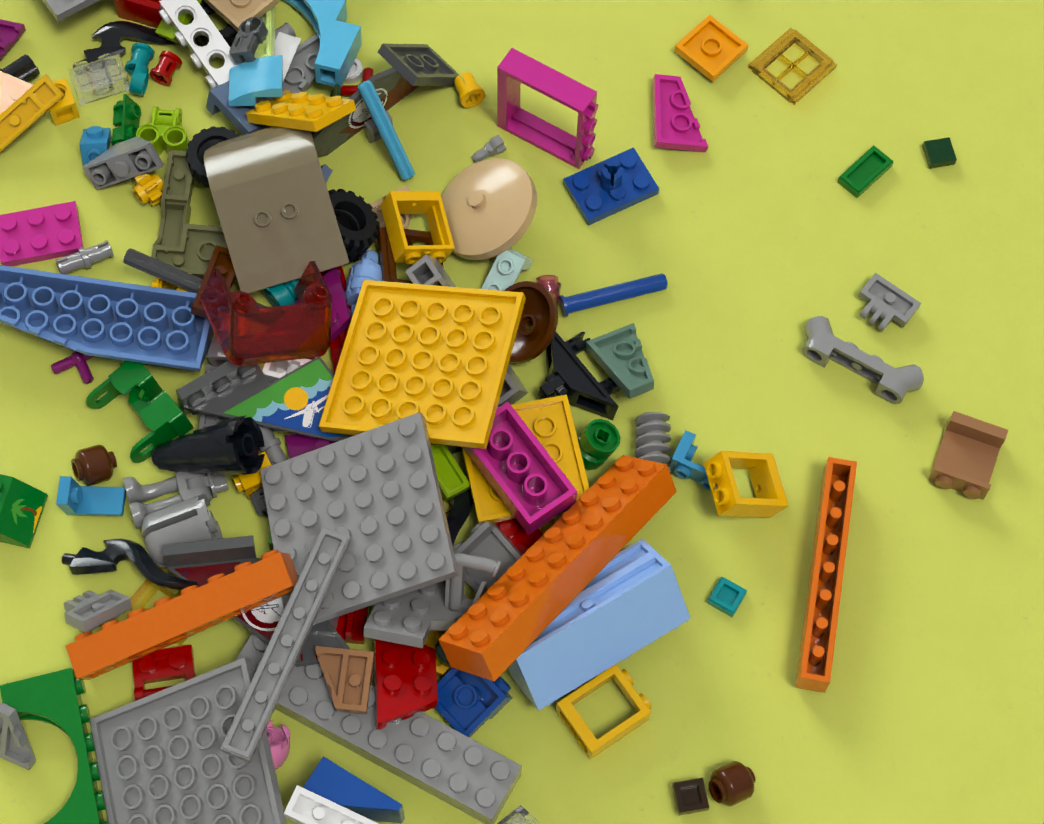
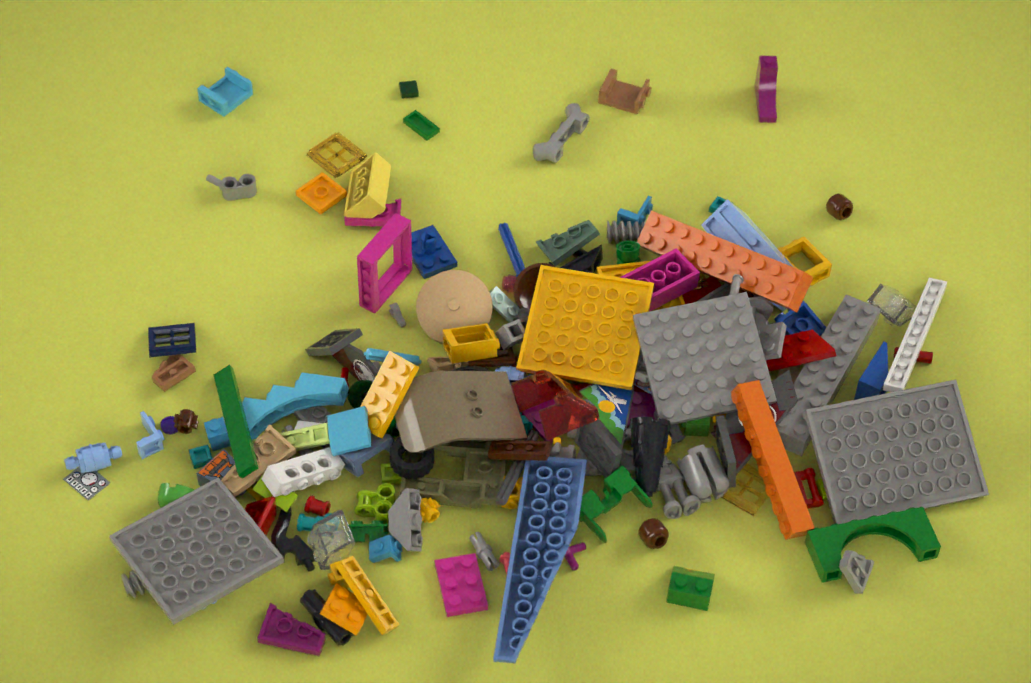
camera: 90 degrees left, 15 degrees down
(89, 499) = (679, 533): dark azure bracket -> none
(92, 609) = (762, 523): light grey hinge -> none
(117, 550) = (715, 514): black piece -> none
(249, 35) = (312, 438): dark grey piece -> none
(285, 645) = (796, 385): light grey tile -> none
(347, 677) = (805, 370): medium nougat wing -> none
(469, 92) = (348, 322): yellow bush -> none
(690, 796) = (848, 227): dark brown plate -> none
(715, 101) = (368, 188): none -> light yellow slope
(765, 481) = (649, 184): yellow window -> none
(826, 575) = (707, 155): orange brick -> none
(887, 303) = (520, 119): light grey hinge -> none
(1002, 679) = (766, 88): none -> magenta arch

